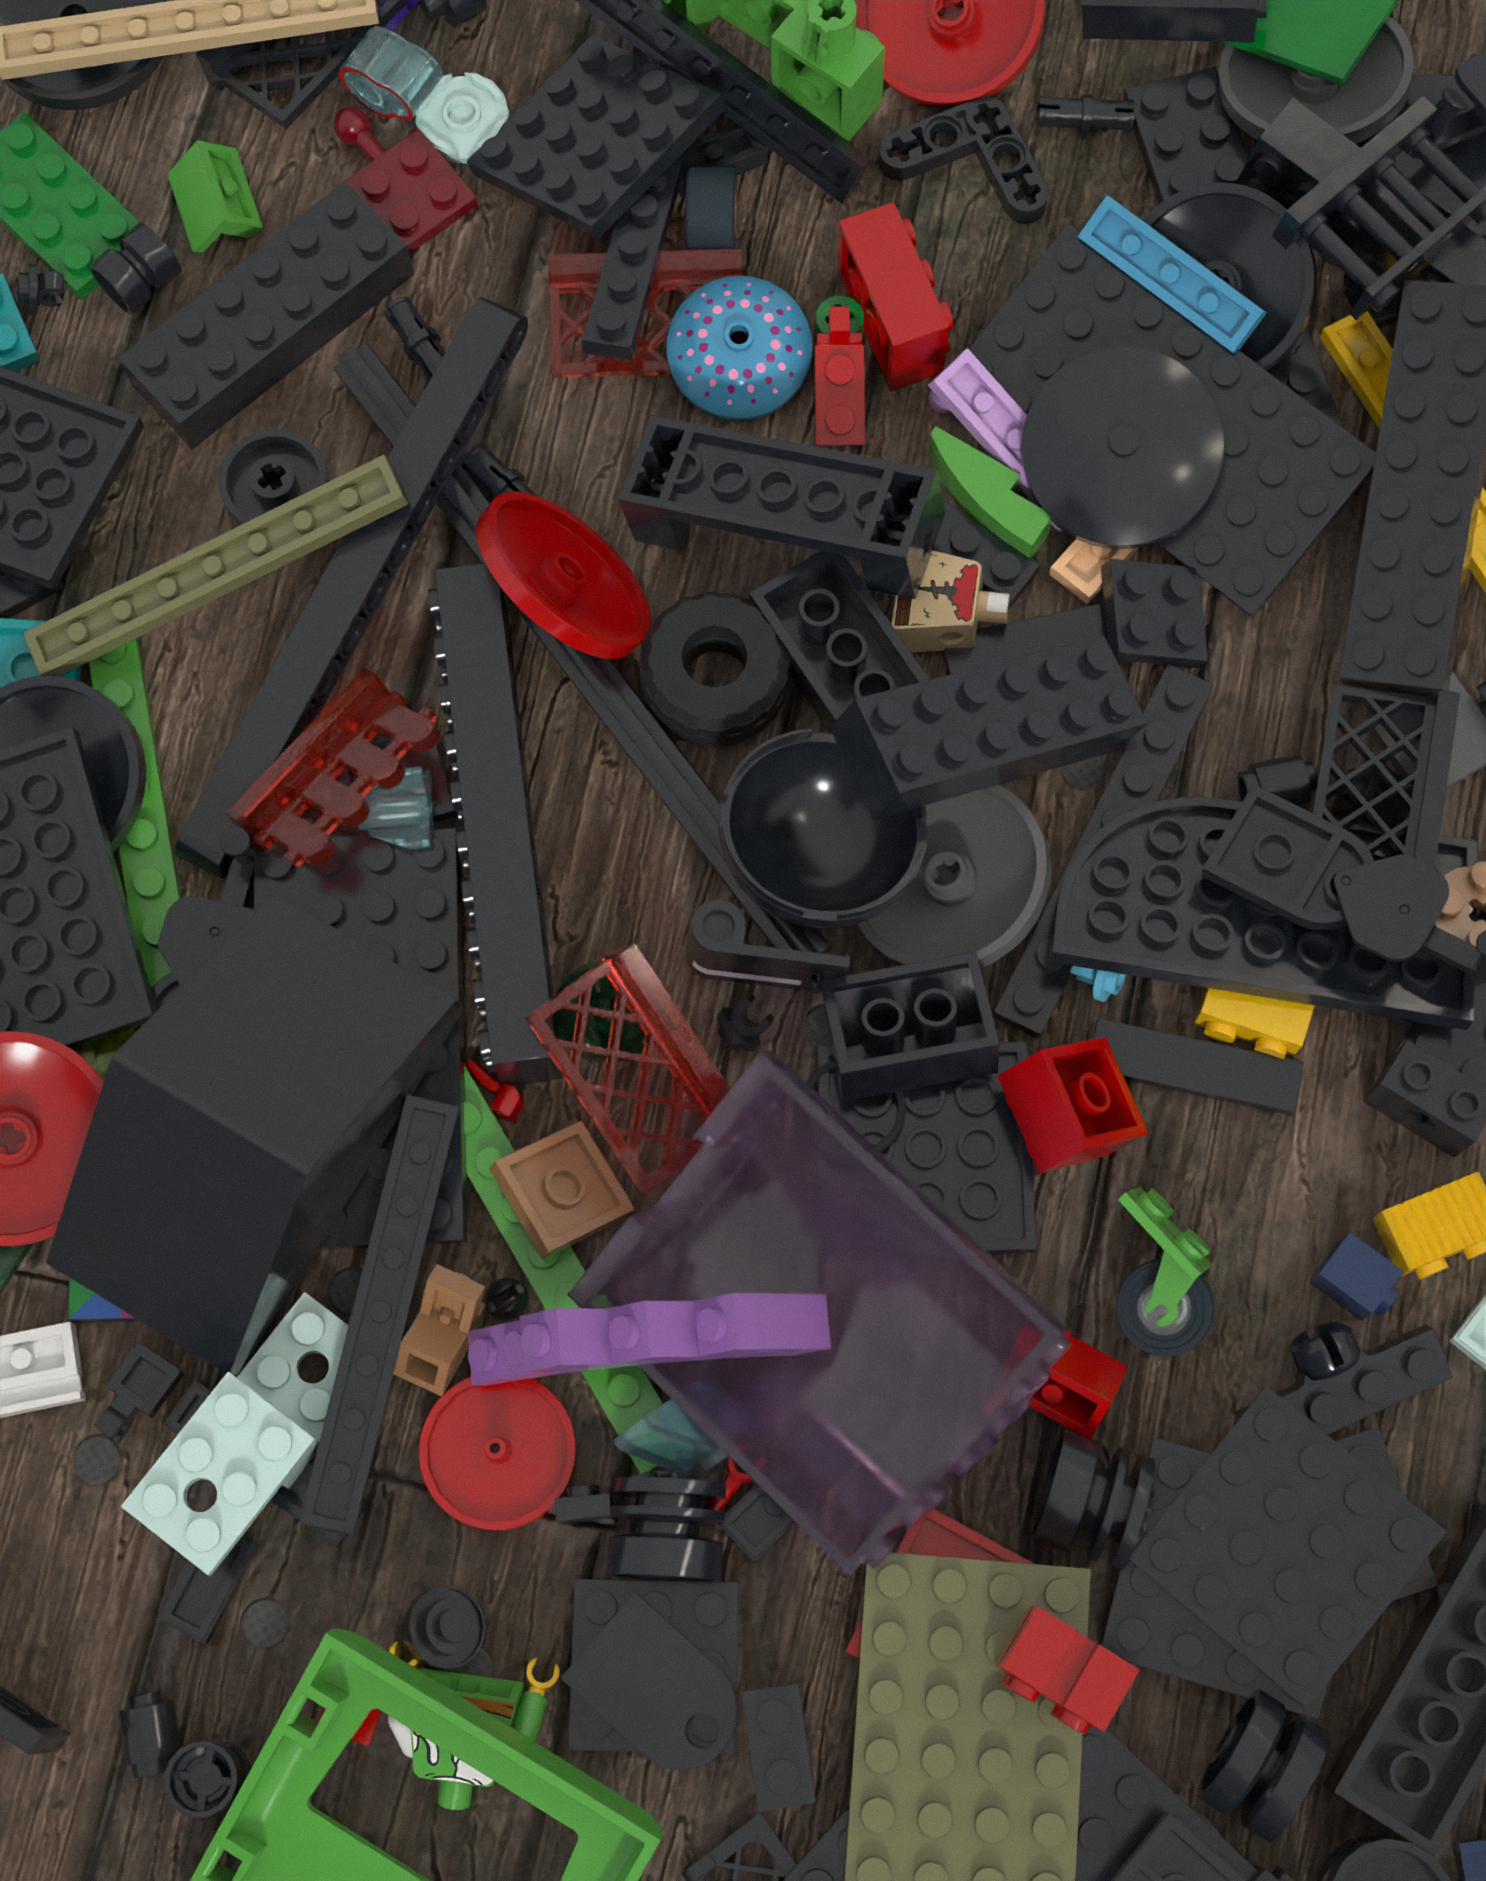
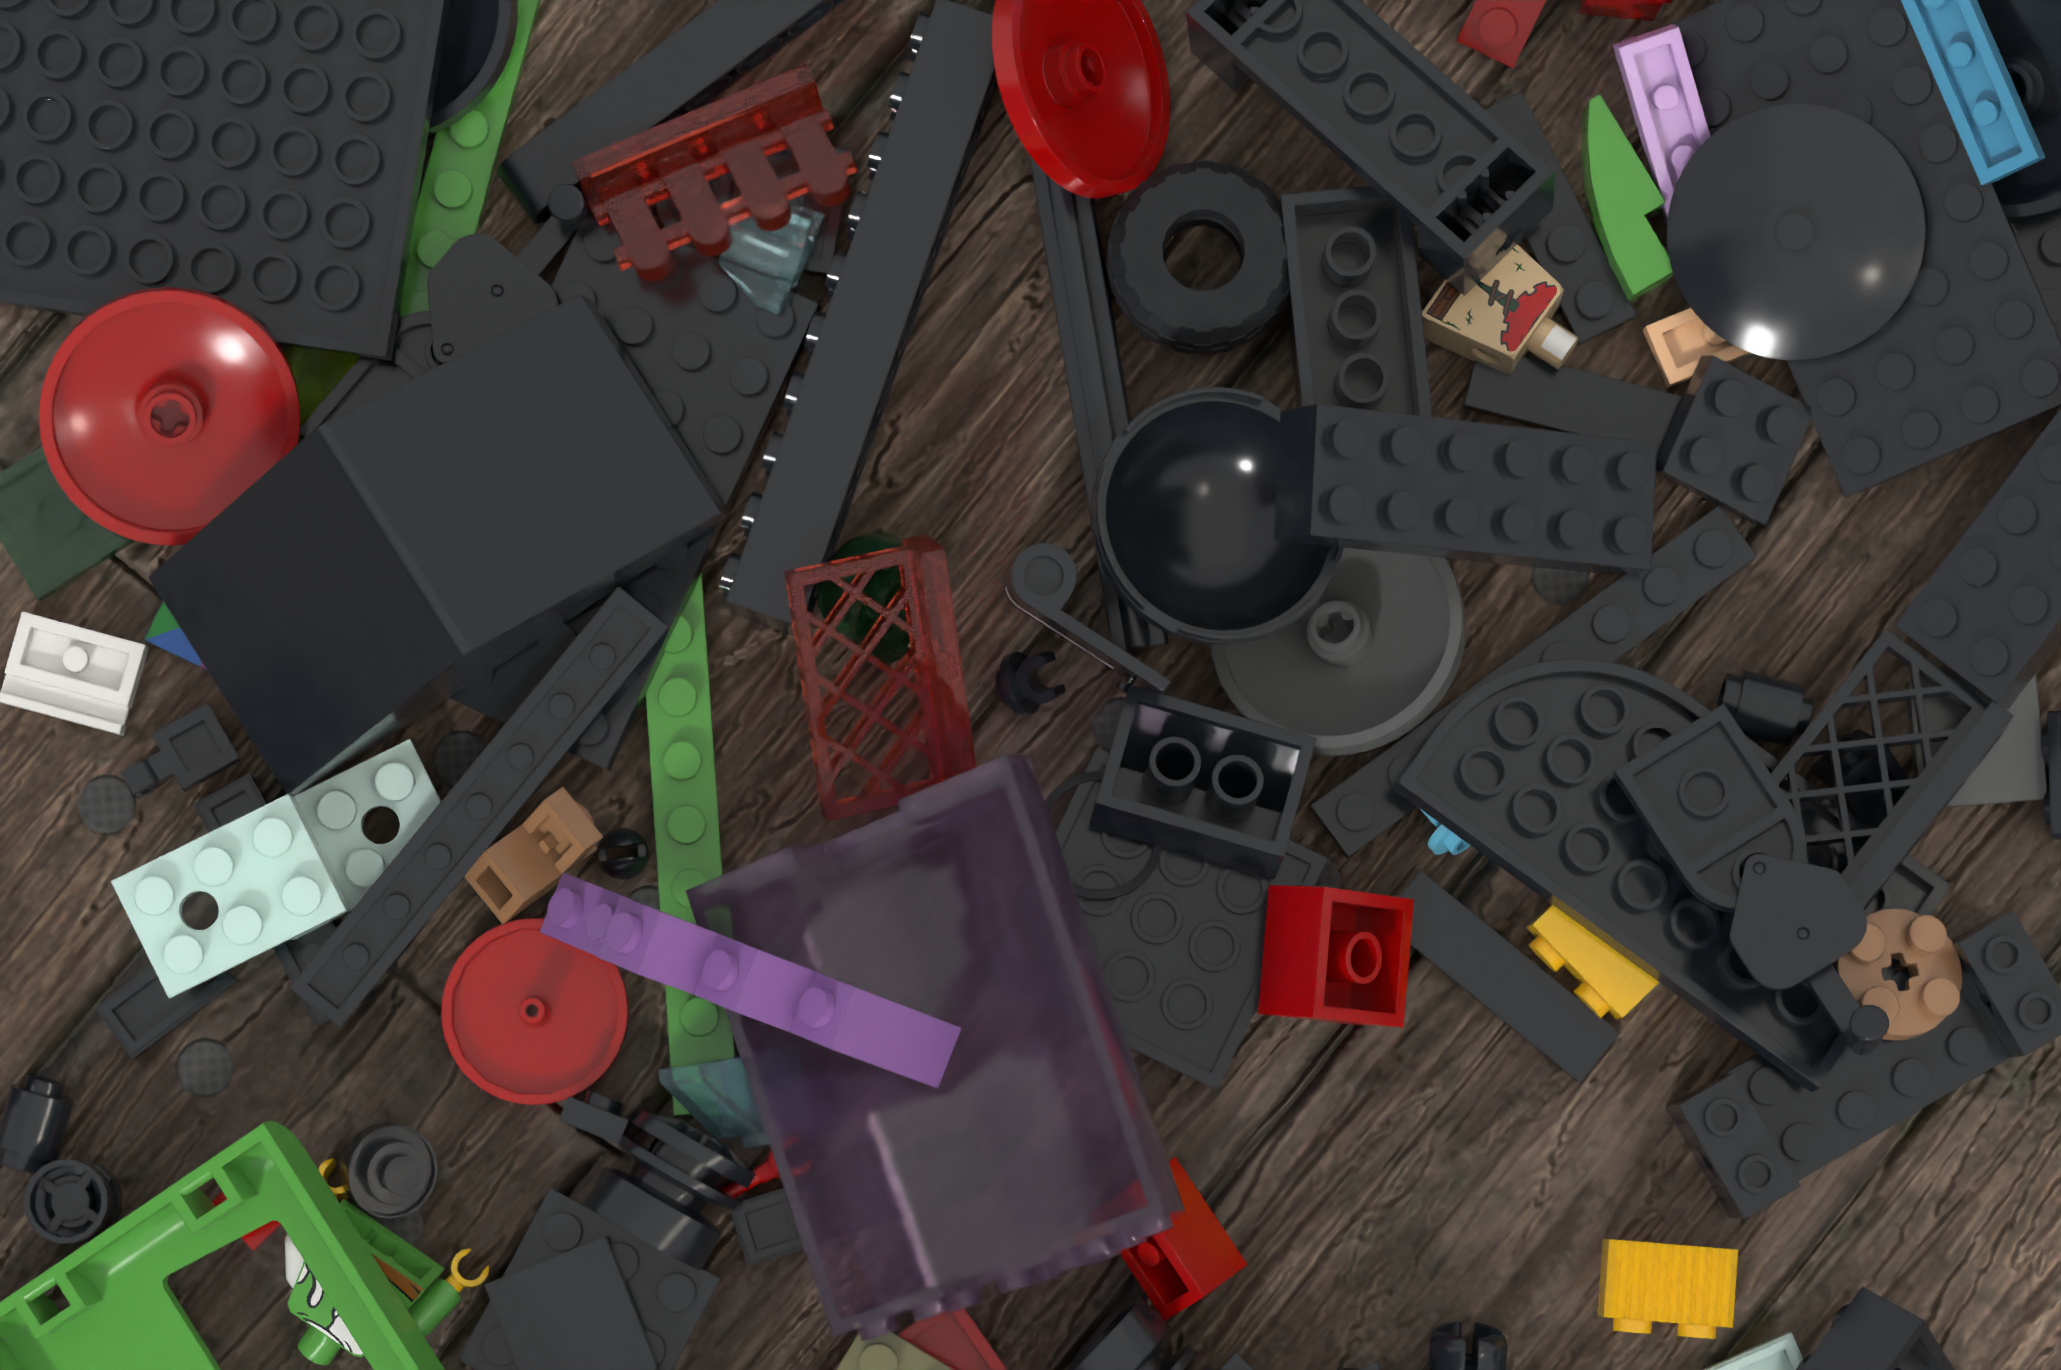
camera: 20 degrees right, 10 degrees up
(507, 1101) = (728, 635): red hand -> none
(561, 1189) = (738, 767): medium nougat plate -> none
(1167, 1300) = (1327, 1215): plate -> none
(1358, 1278) = (1547, 1295): dark blue brick -> none

